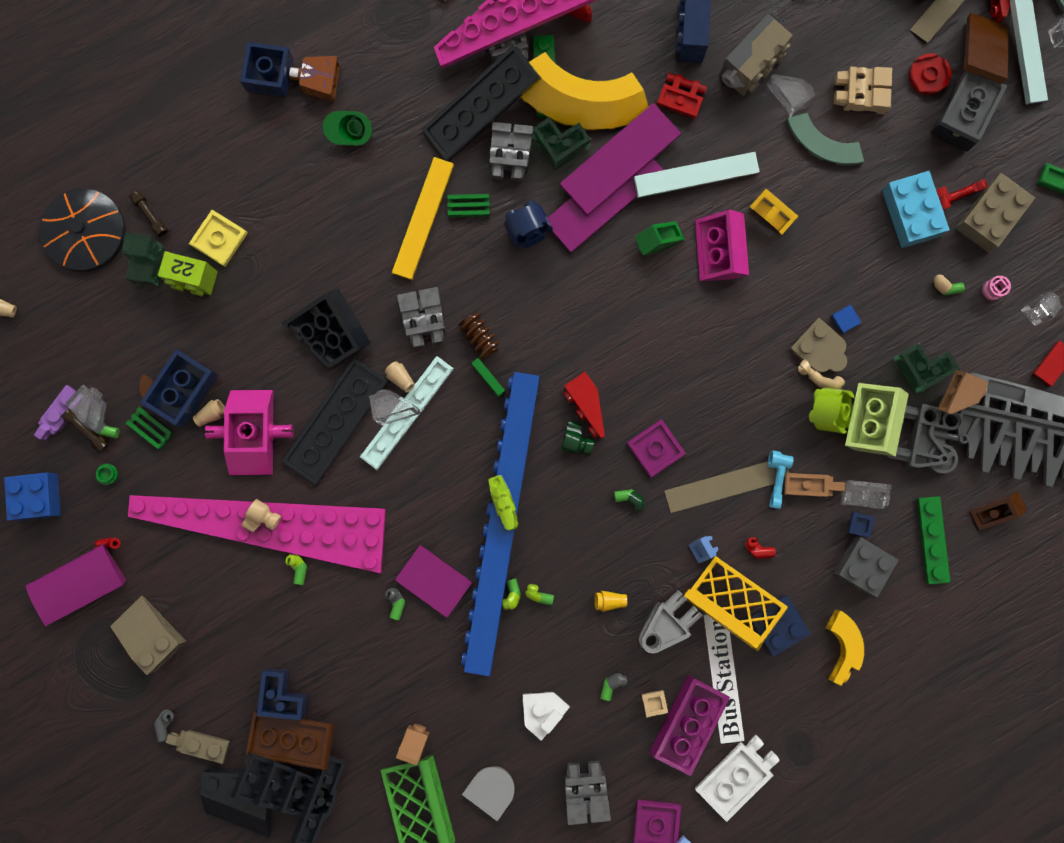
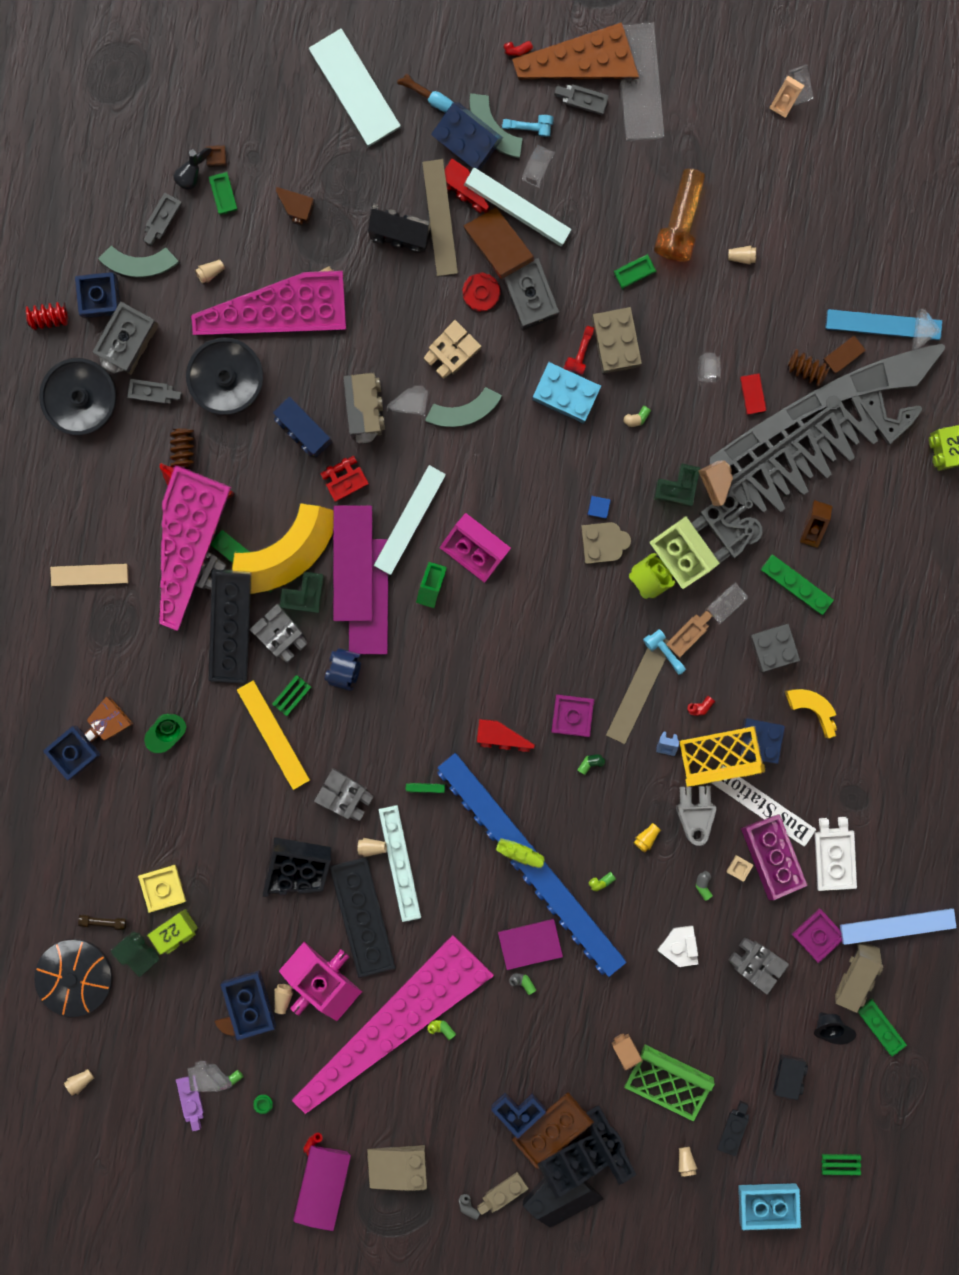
camera: 50 degrees left, 5 degrees up
(32, 496) = (235, 1167): blue brick -> none
(98, 443) = (236, 1092): dark brown bar -> none
(136, 417) = (258, 1055): green tile -> none
(258, 514) = (384, 1022): tan piece -> none
(390, 407) = (387, 872): clear slope -> none
(479, 335) = (390, 768): reddish brown piece -> none
(491, 791) = (701, 1025): light grey tile -> none
(514, 595) = (590, 904): arm -> none
(574, 442) = (518, 767): dark green piece -> none
(774, 211) = (482, 491): yellow window -> none
(818, 379) = (625, 563): tan arm -> none
(861, 524) = (744, 625): dark blue tile -> none
(991, 289) = (665, 389): bright pink wheel -> none

